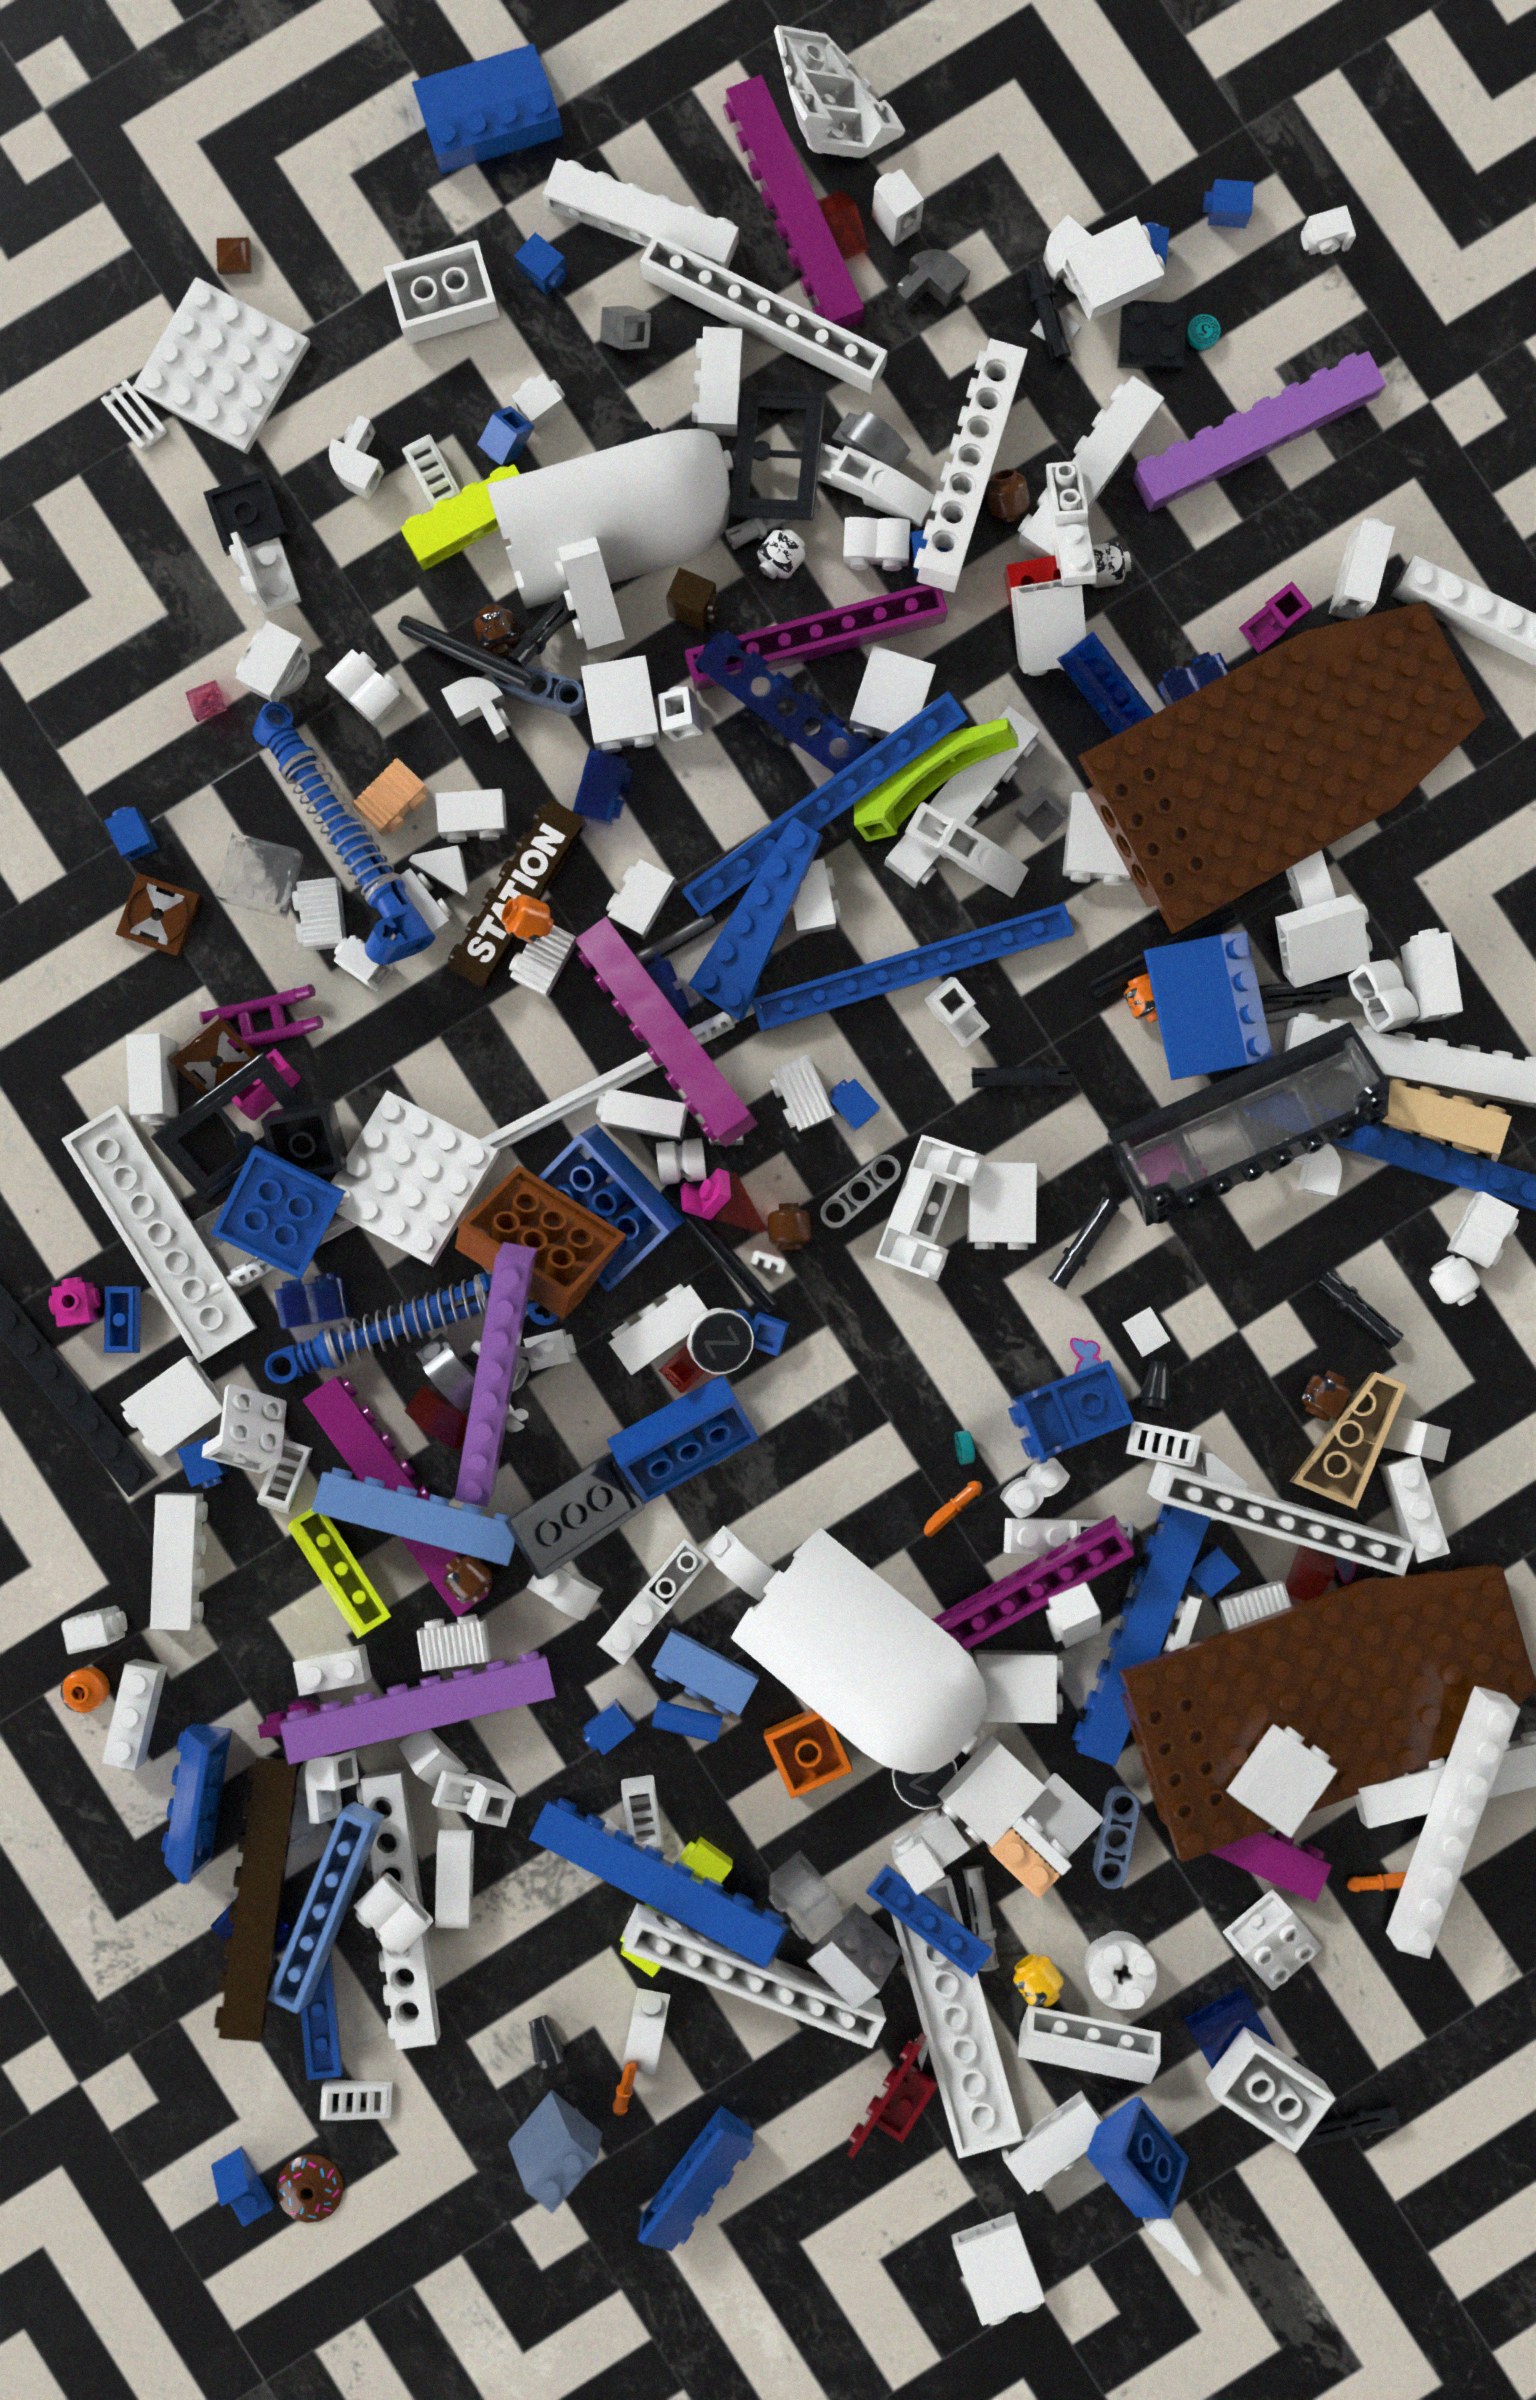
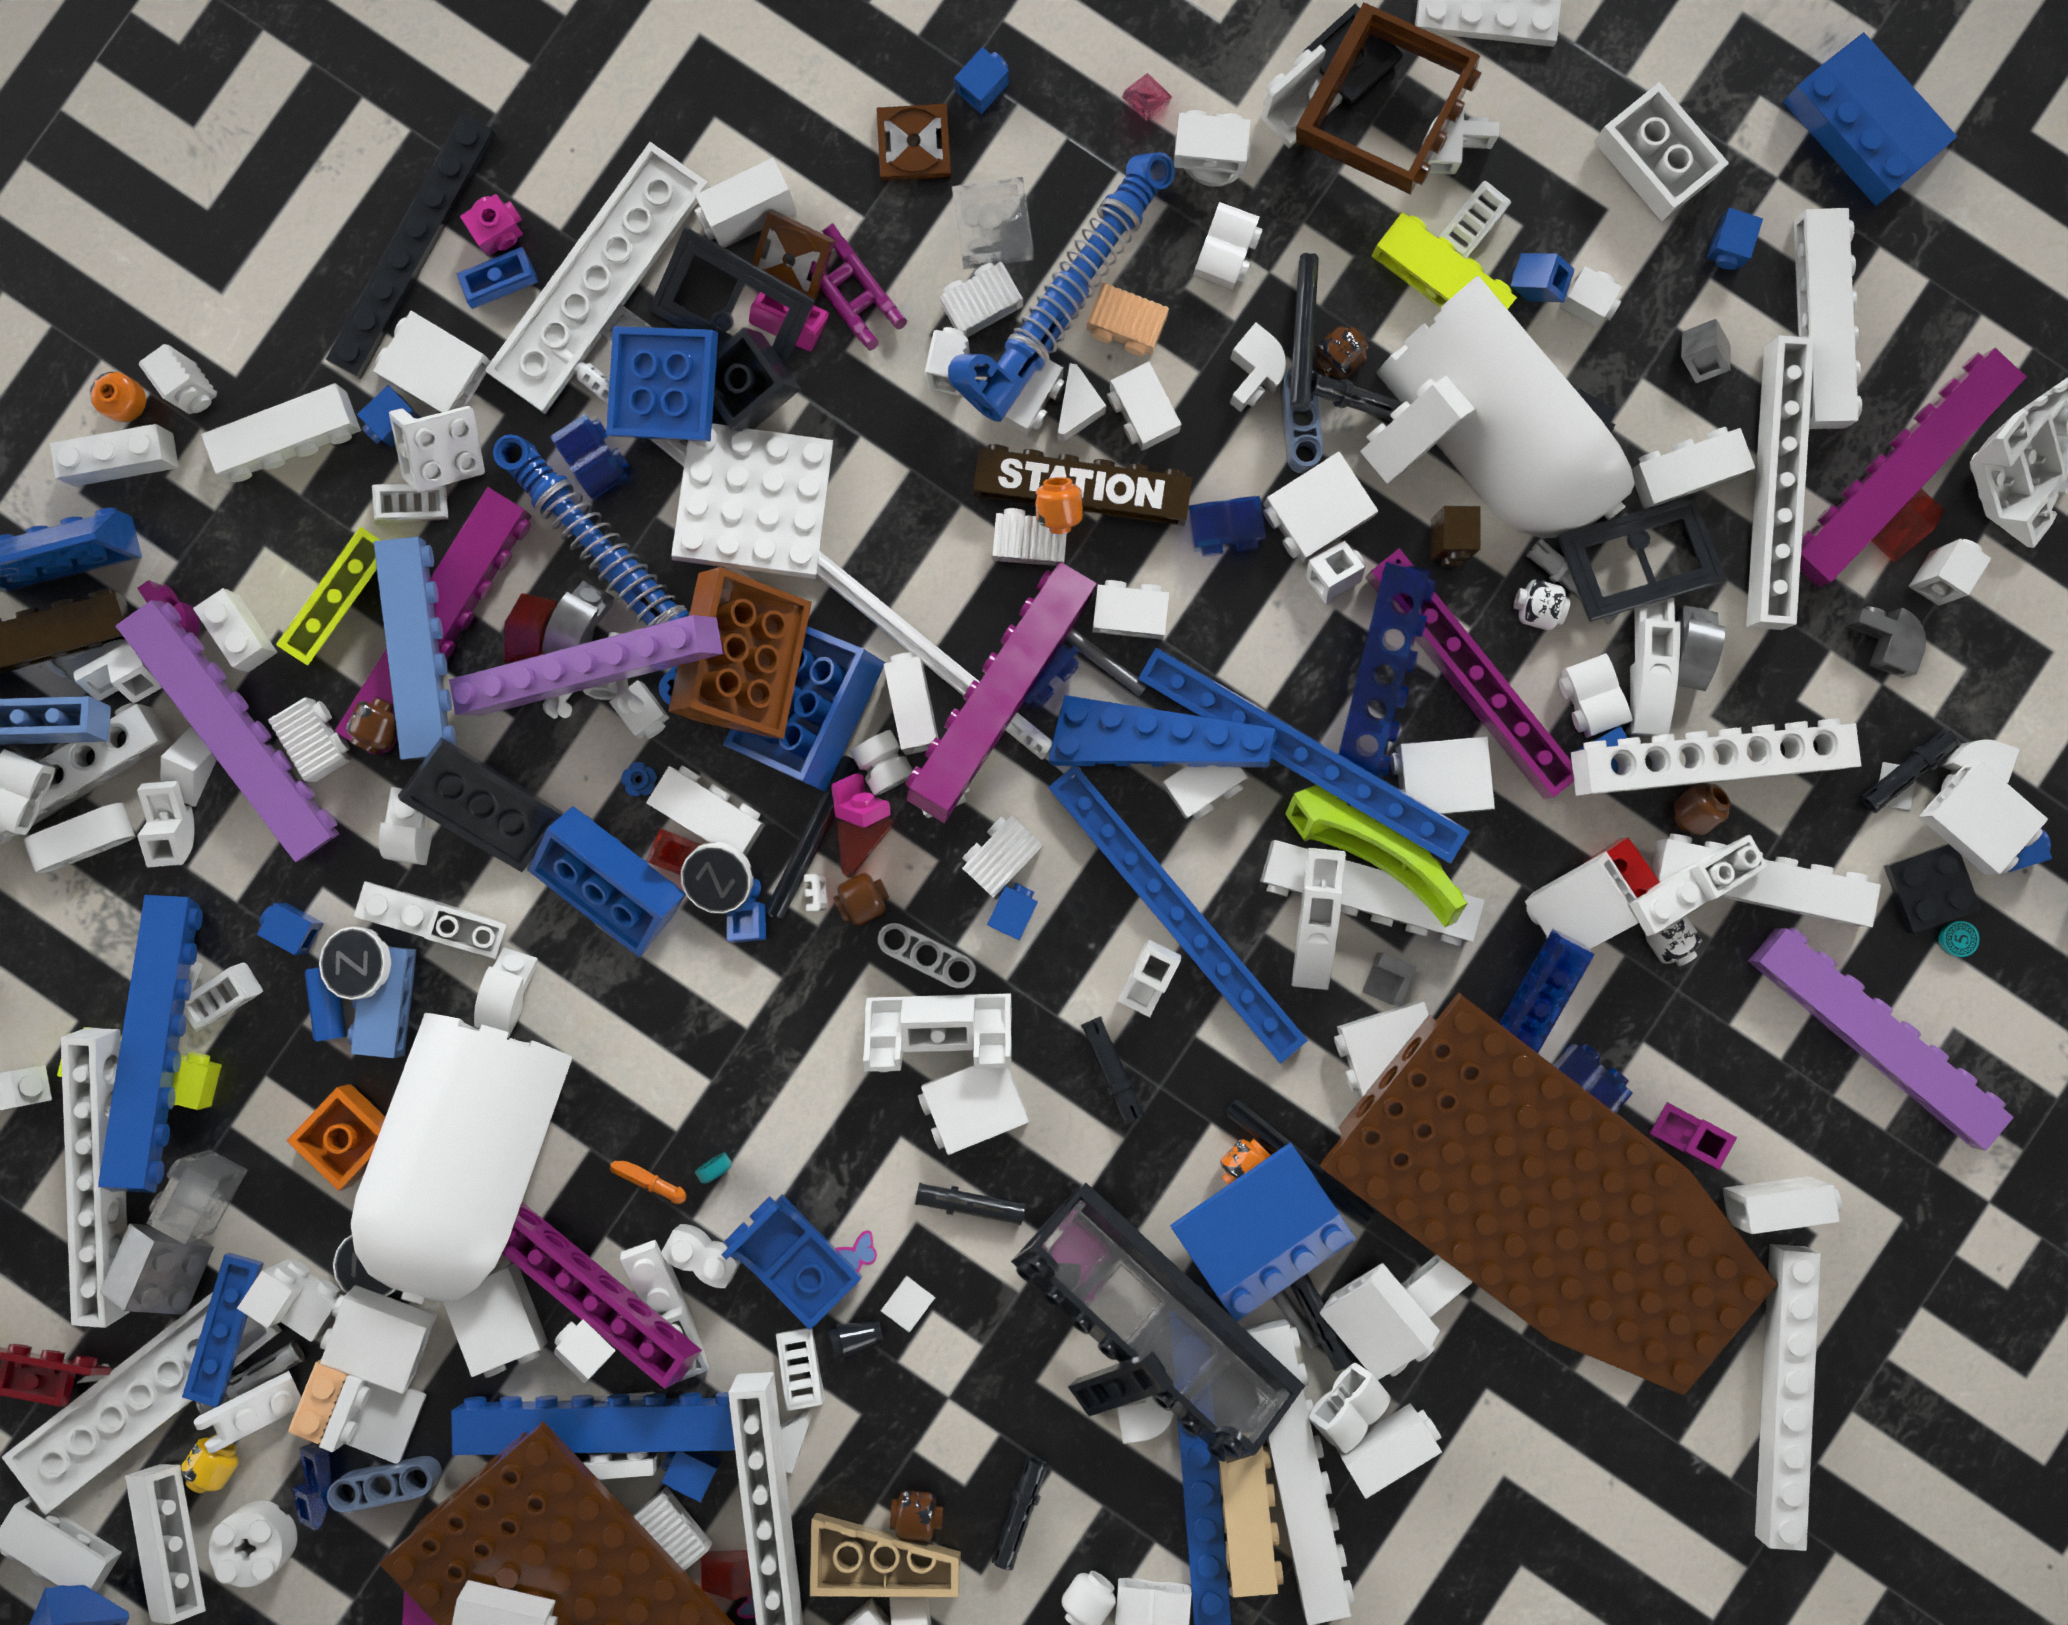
camera: 70 degrees right, 0 degrees up
(257, 456) = (1415, 40): none -> reddish brown window
(601, 1382) = (647, 784): none -> blue plate
(664, 1679) = (354, 963): none -> black tile
(1008, 1924) = (250, 1411): none -> white hinge
(1100, 1901) = (312, 1496): none -> clear blue slope
(1286, 1175) = (1121, 1384): none -> black hinge

